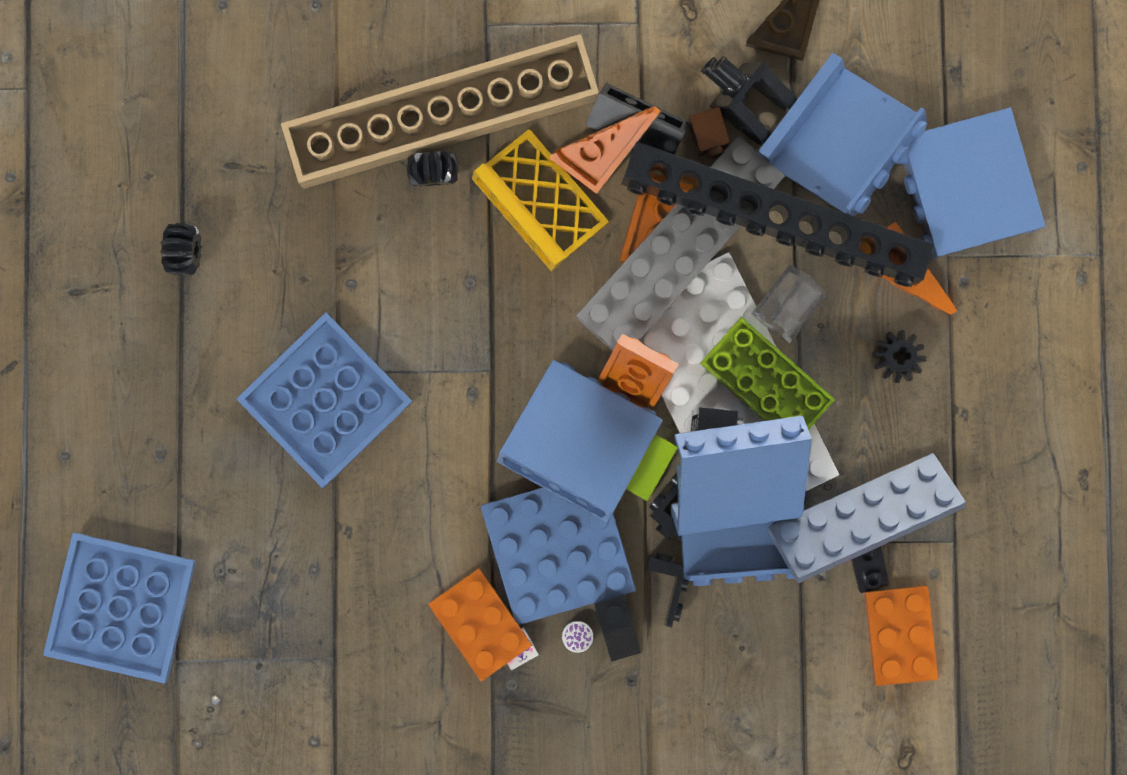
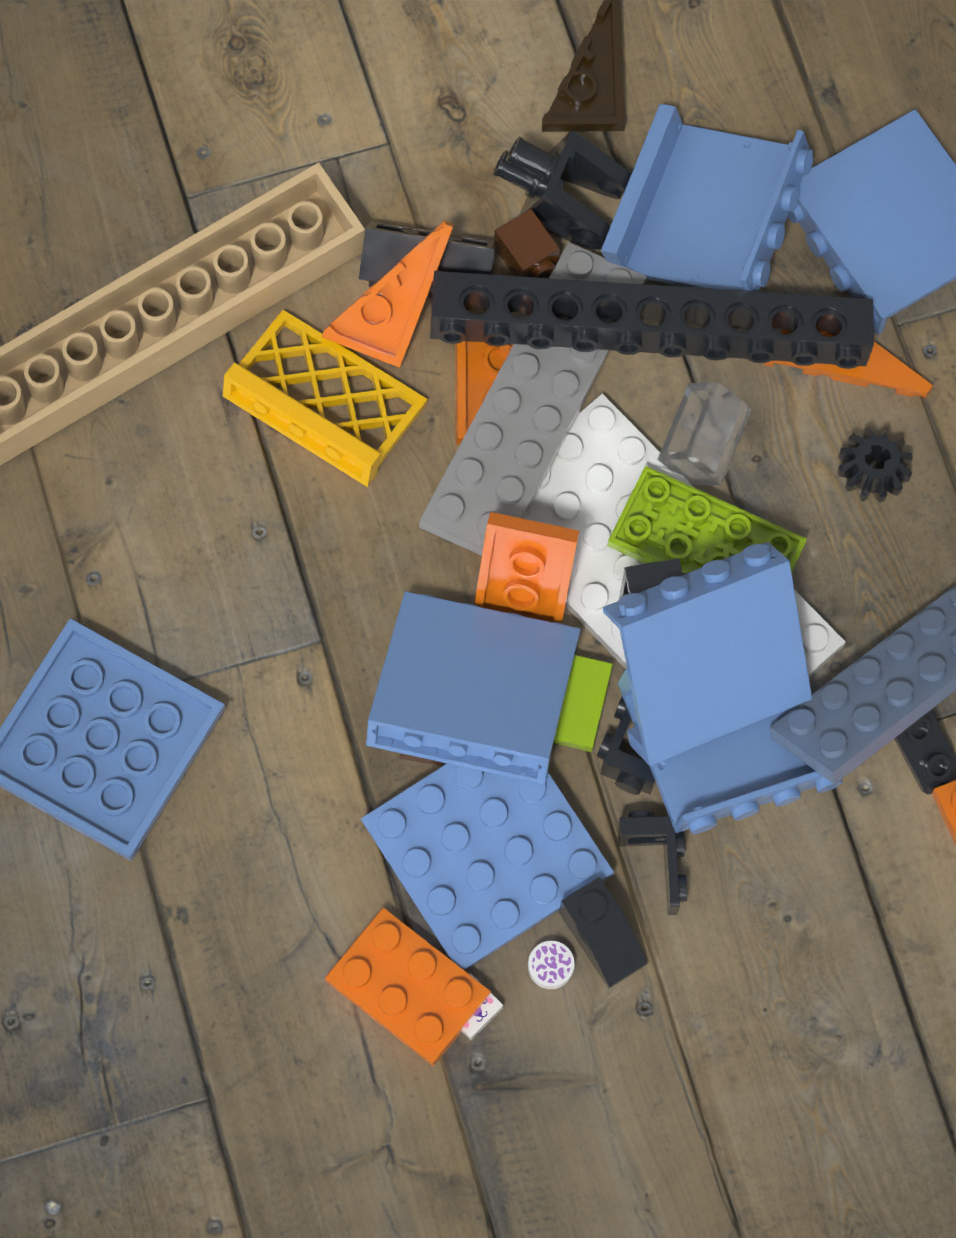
camera: 20 degrees left, 15 degrees down
(432, 168) = (166, 389): black gear -> none

